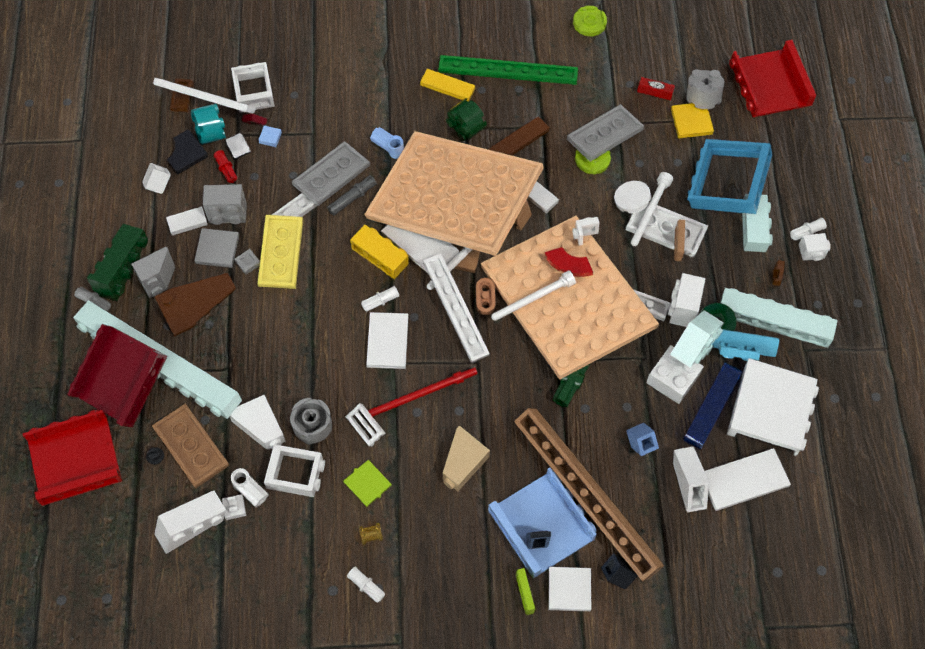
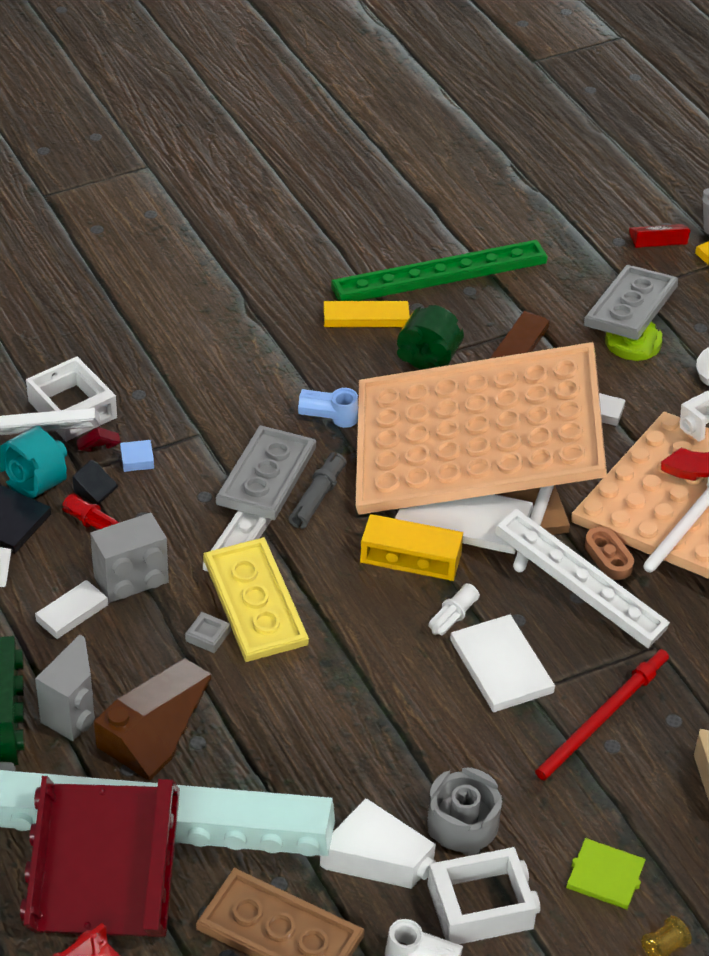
camera: 25 degrees left, 20 degrees down
(216, 248) = (145, 630): light grey tile -> none
(375, 436) = (577, 800): white tile -> none
(589, 21) = (512, 185): lime tile -> none

